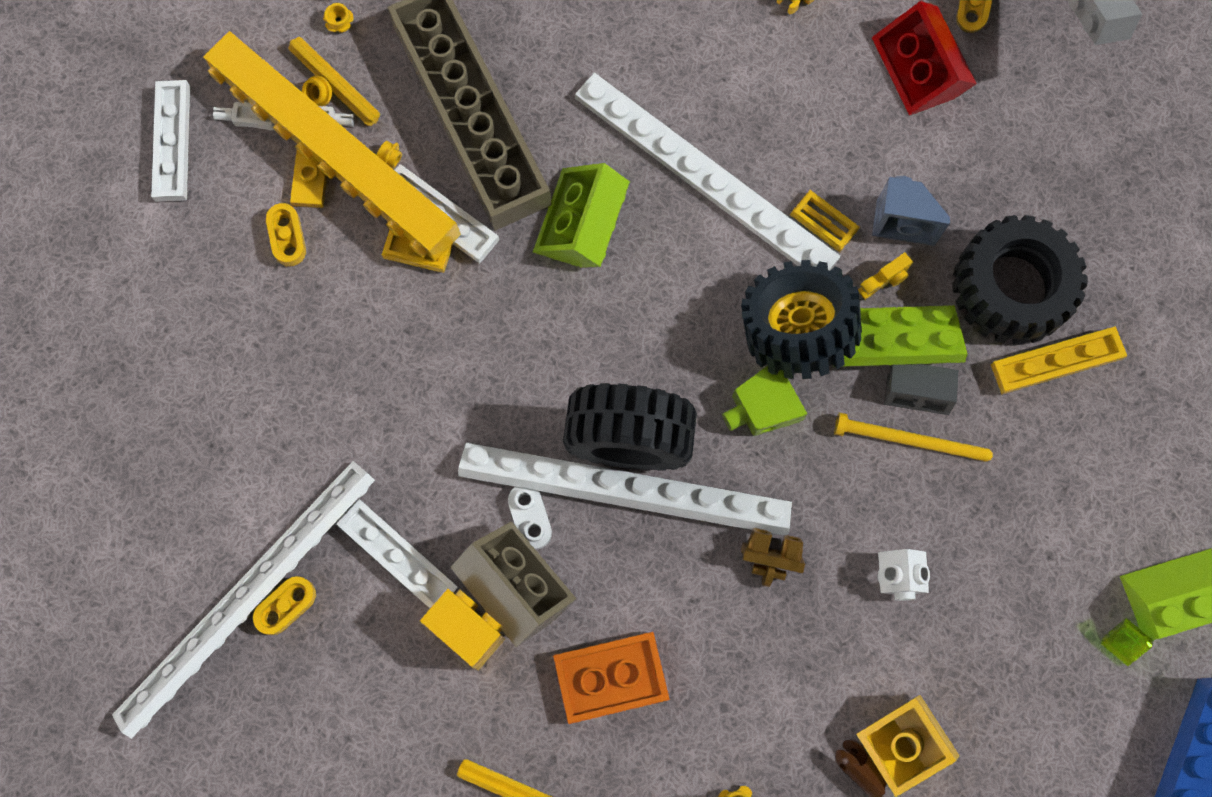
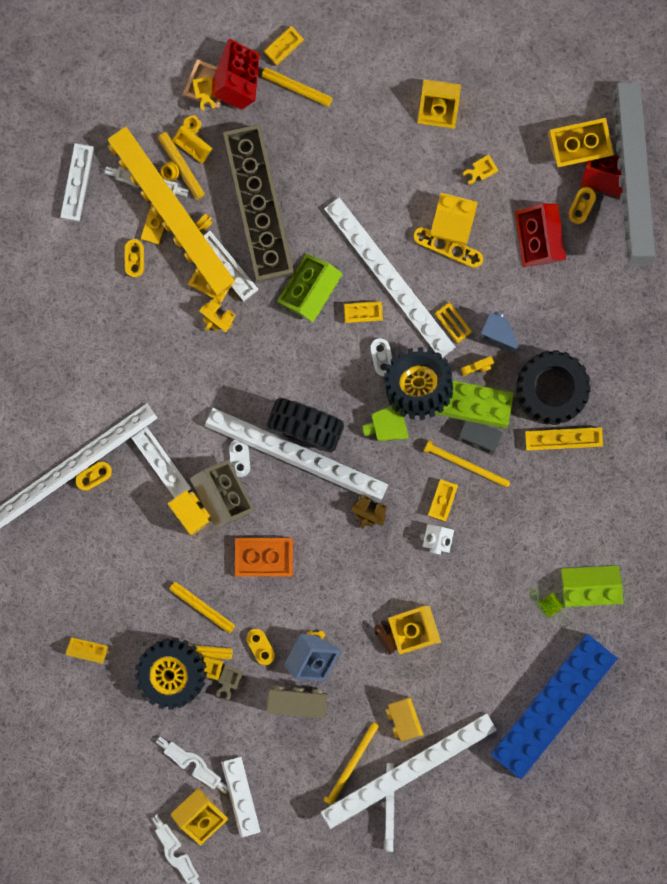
camera: 15 degrees right, 10 degrees up
(344, 44) = (192, 144): none -> yellow plate
(453, 298) = (214, 318): none -> yellow hips
(676, 236) = (363, 312): none -> yellow plate
(725, 300) = (380, 357): none -> white plate
(783, 60) = (453, 218): none -> yellow slope
(785, 105) = (447, 250): none -> yellow beam
(890, 507) = (442, 500): none -> yellow plate

